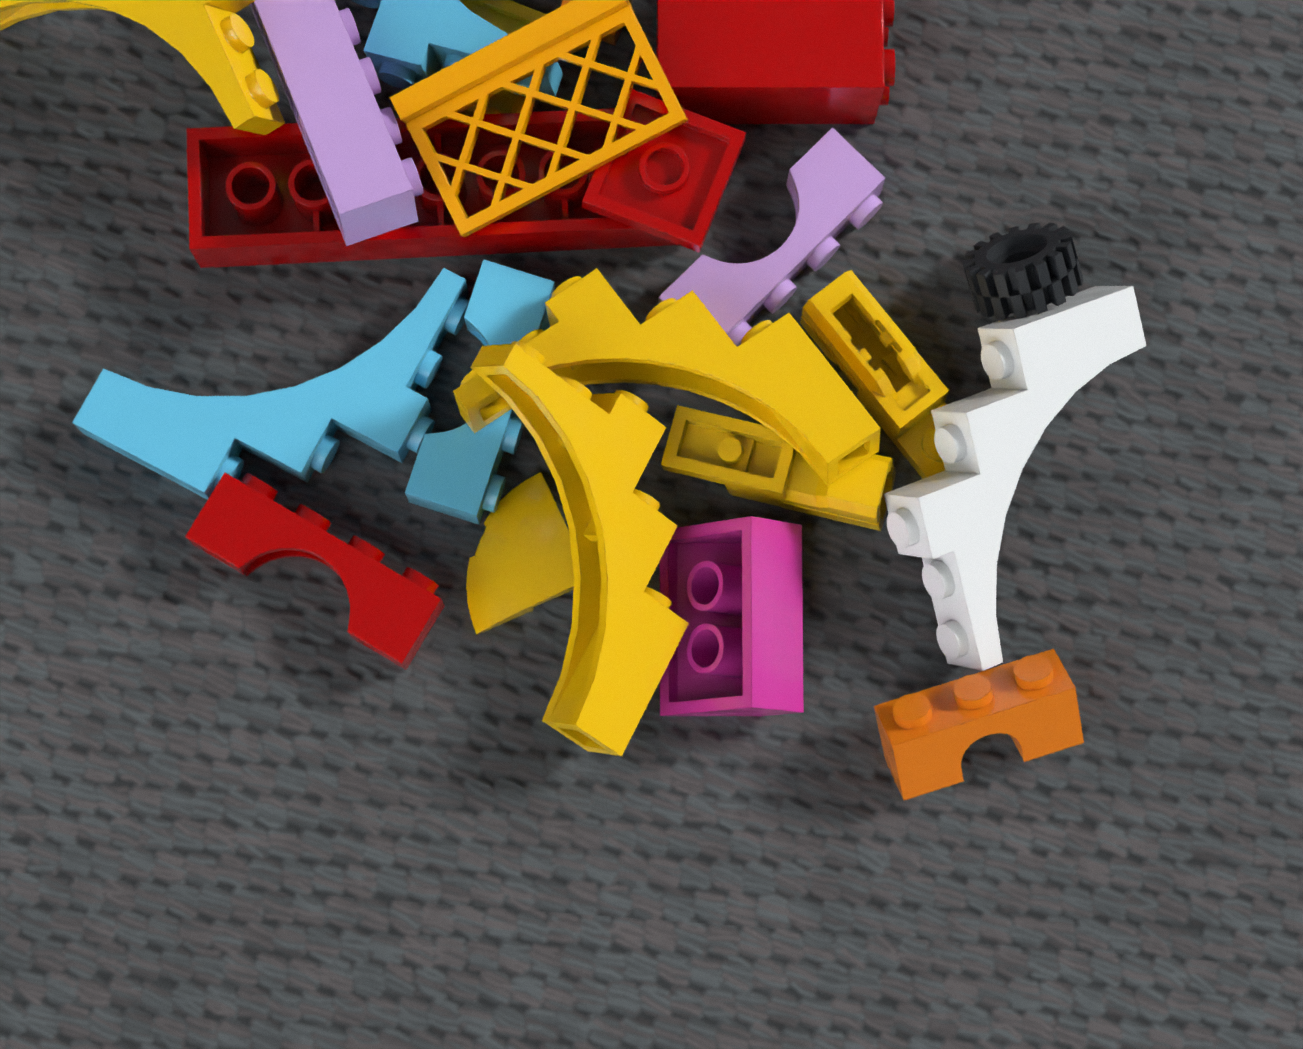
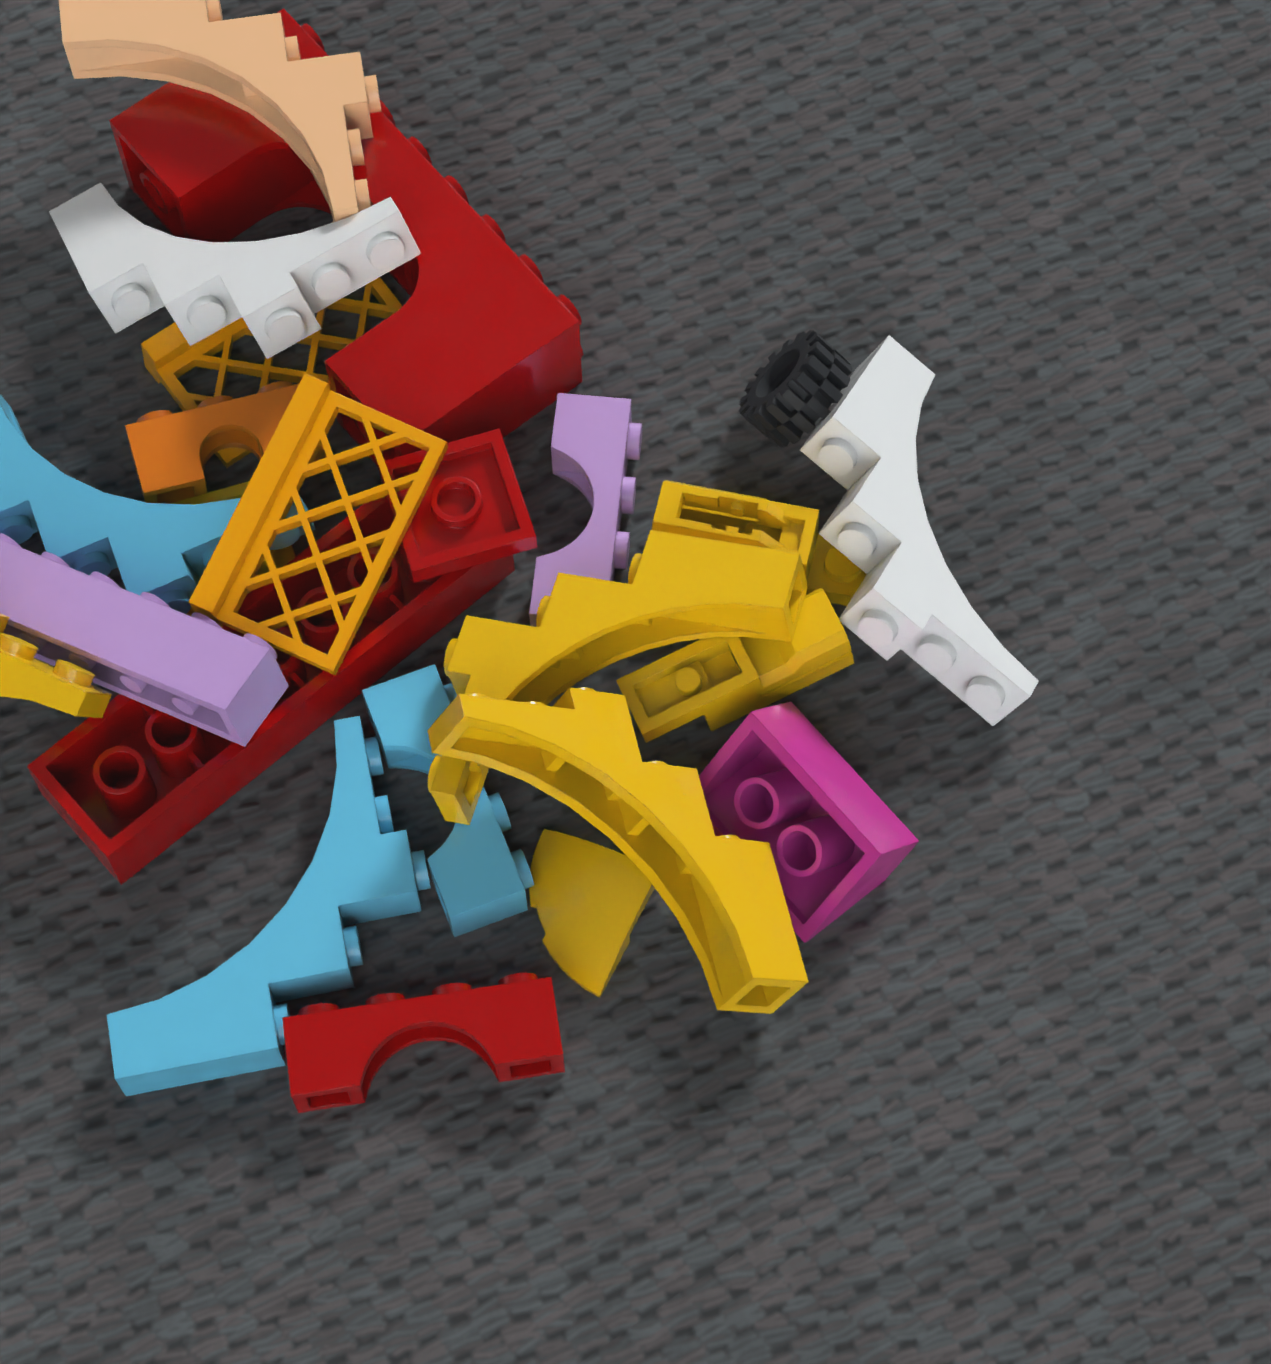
camera: 35 degrees left, 15 degrees down
(933, 728) = (1031, 775): orange arch -> none

